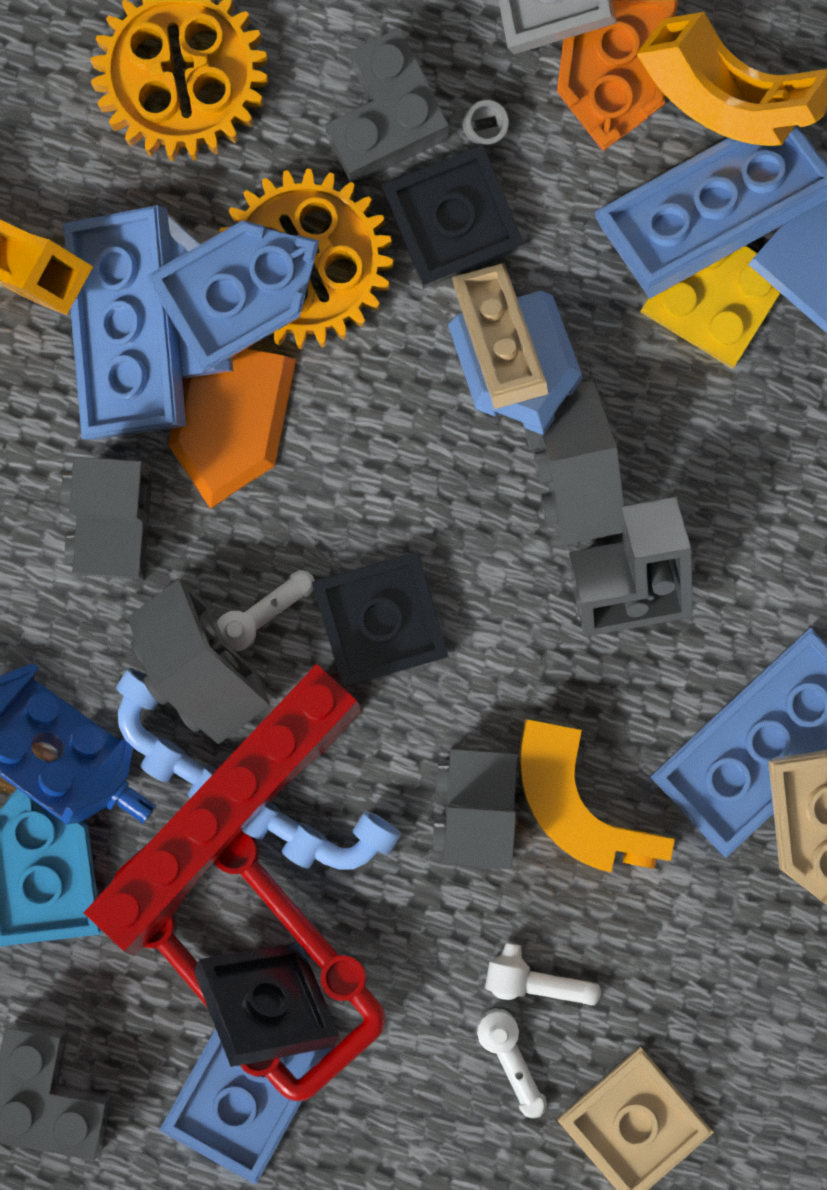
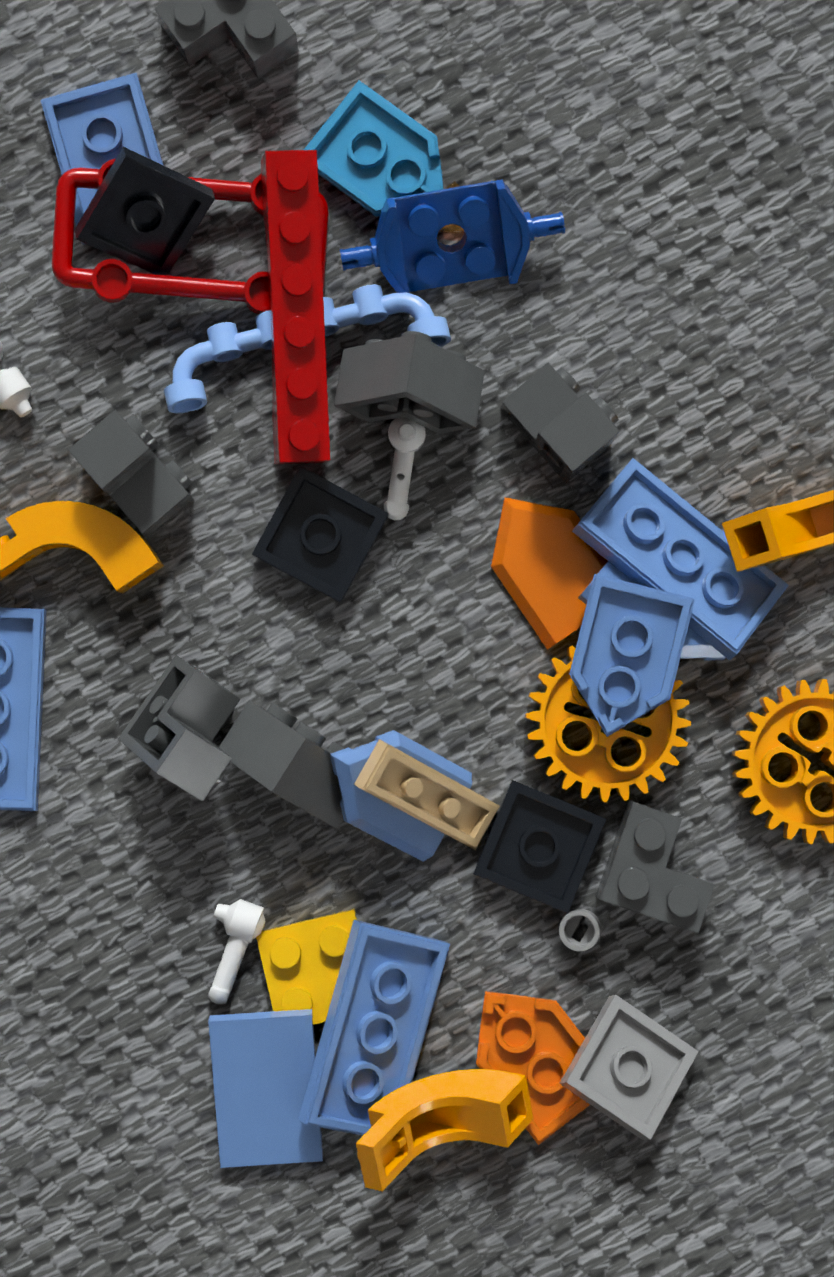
camera: 135 degrees right, 0 degrees up
(737, 382) = (243, 924): none -> white piece

